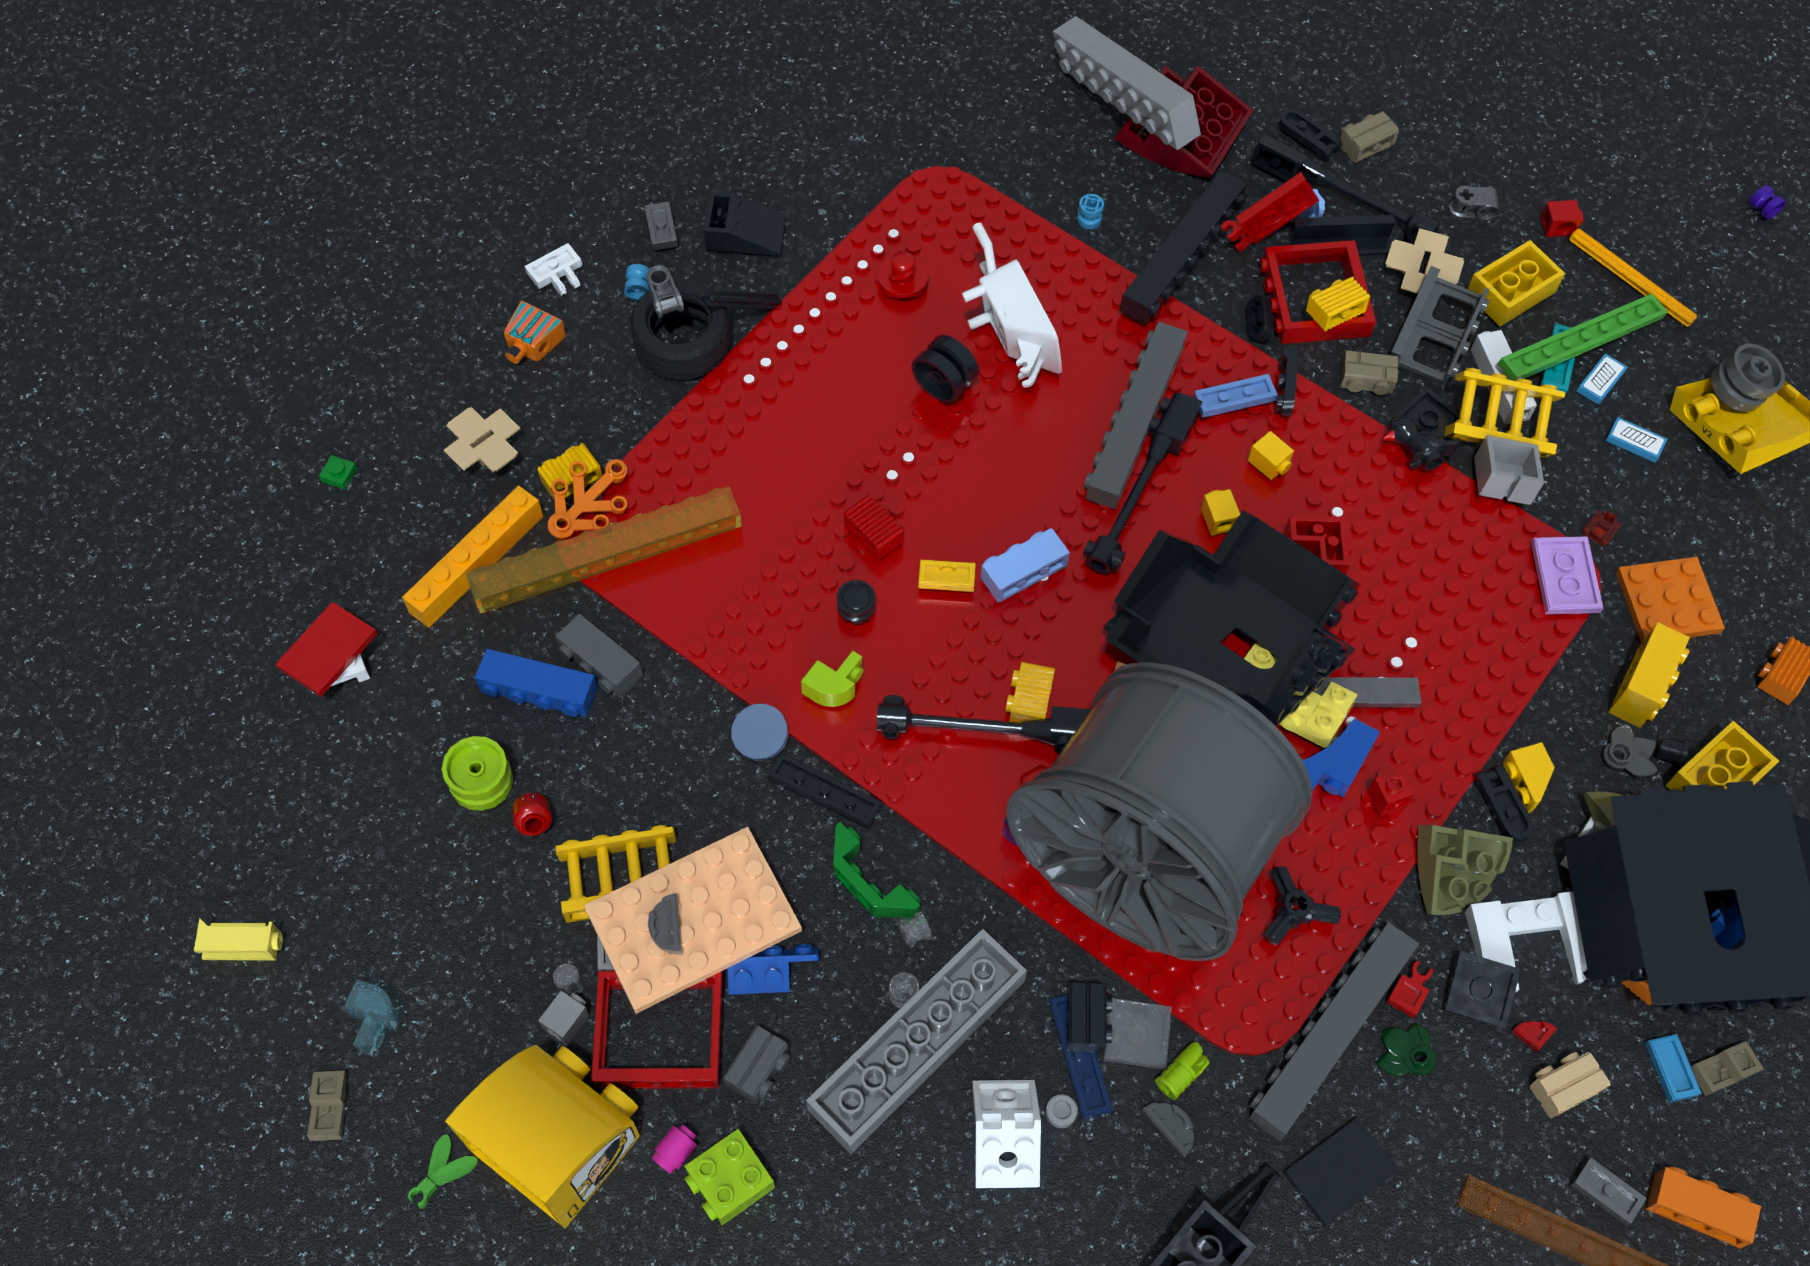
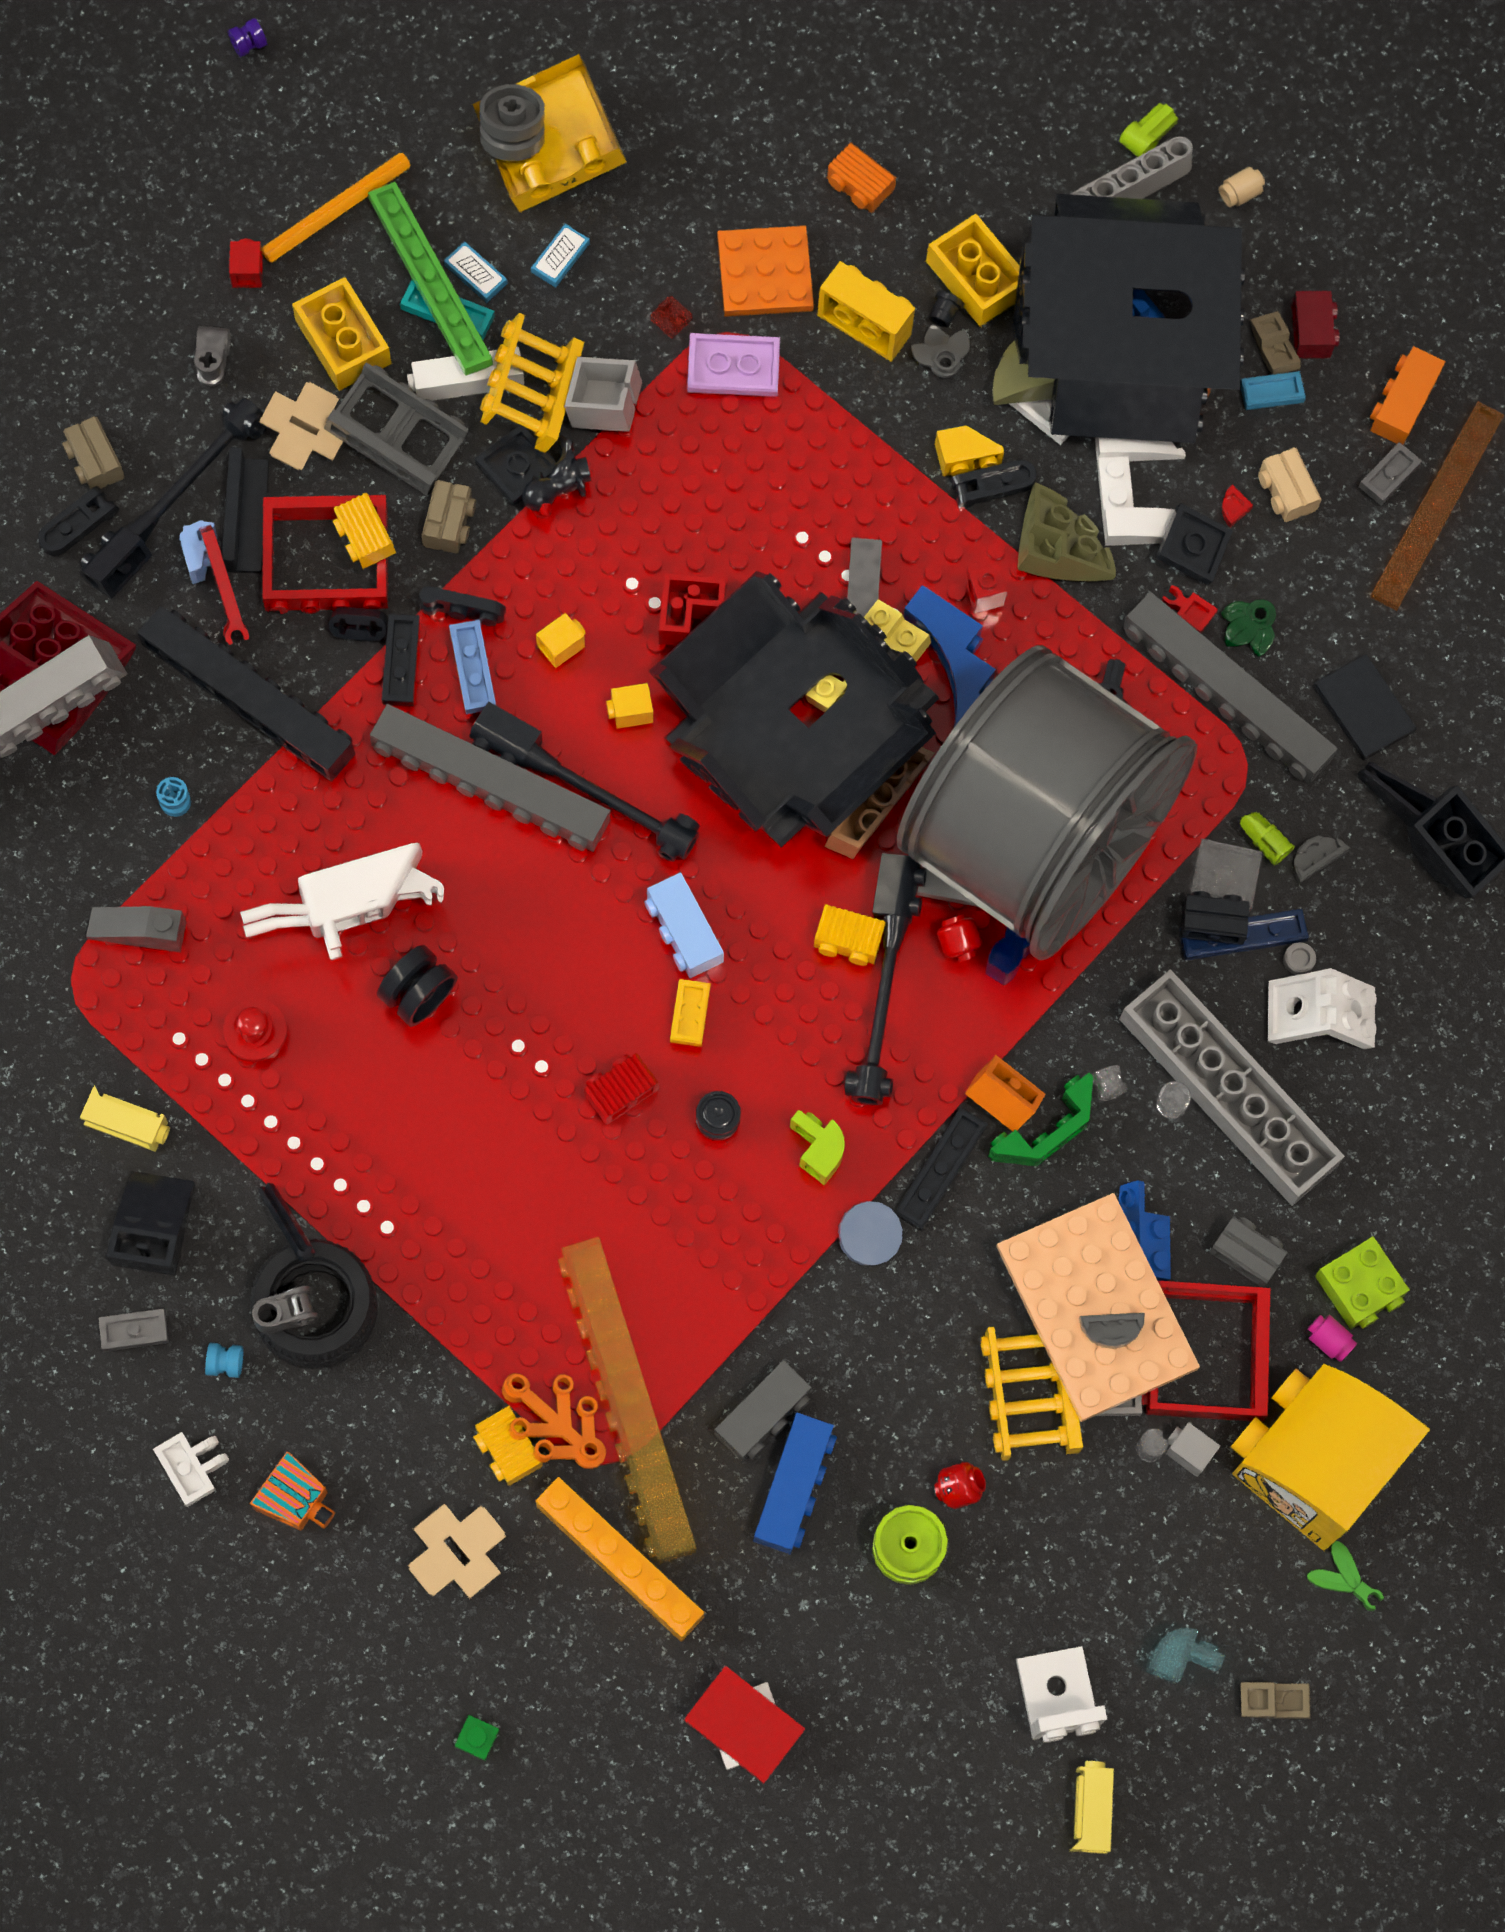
camera: 90 degrees left, 10 degrees up
(322, 909) = (1057, 1715): none -> white bracket
(824, 203) = (125, 1121): none -> light yellow window
(893, 832) = (1000, 1092): none -> orange brick
(978, 197) = (138, 926): none -> dark grey slope
(1231, 345) = (401, 660): none -> black plate
(1758, 1104) = (1314, 324): none -> dark red brick

